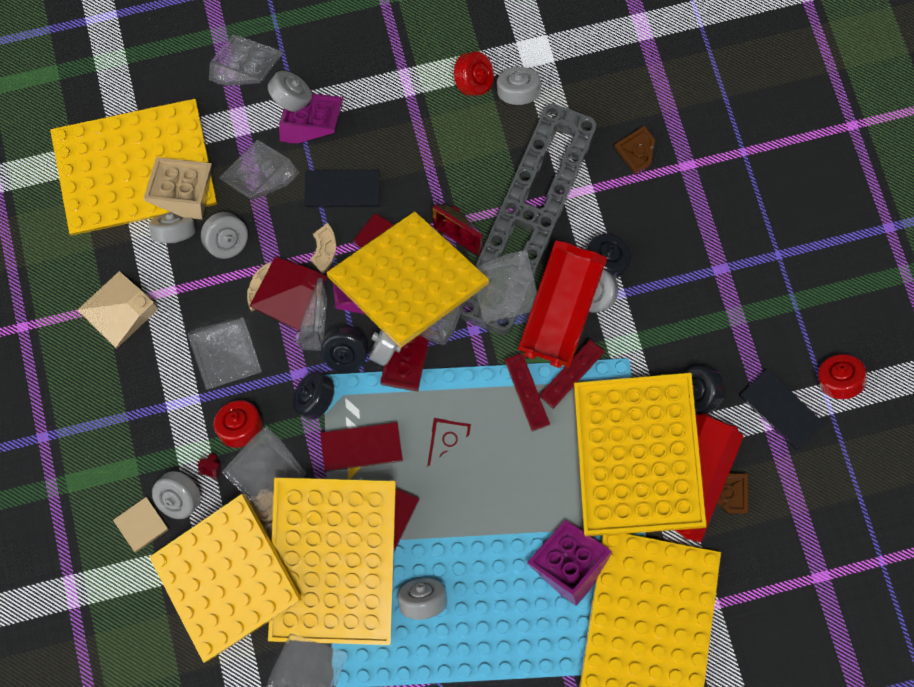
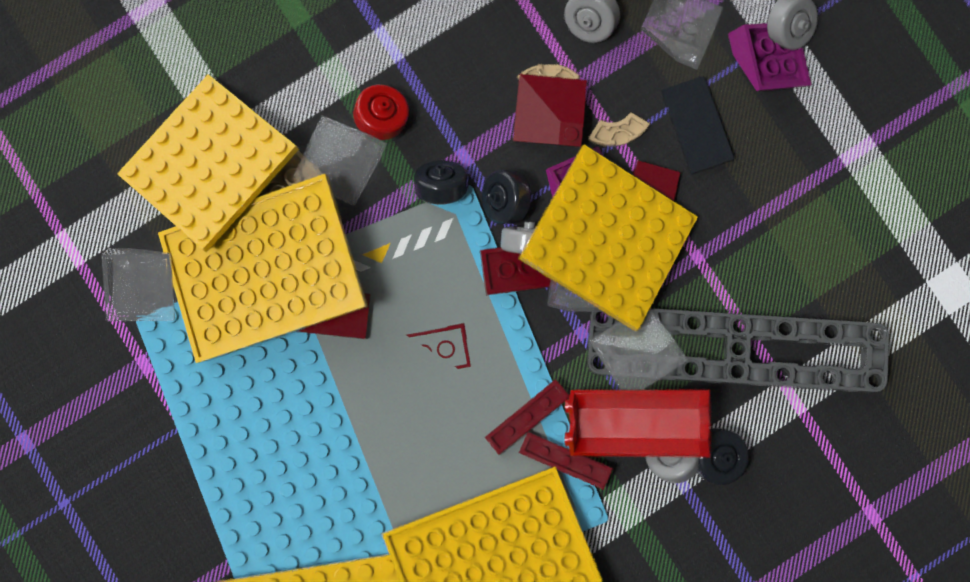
camera: 70 degrees right, 10 degrees up
(140, 524) = (239, 52): tan tile -> none
(176, 495) = (281, 76): light grey wheel -> none
(209, 467) = (325, 100): dark red tile -> none
(224, 352) = (456, 65): clear slope -> none
(313, 323) = (522, 152): clear slope -> none
(361, 447) = (402, 255): dark red tile -> none
(422, 598) = (255, 380): light grey wheel -> none
(456, 227) = (697, 265): dark red slope -> none
(473, 73) = (894, 225): red wheel -> none
(518, 85) = (897, 283): light grey wheel -> none
(570, 562) = (350, 527): magenta slope -> none
(636, 150) = (868, 449): reddish brown plate -> none

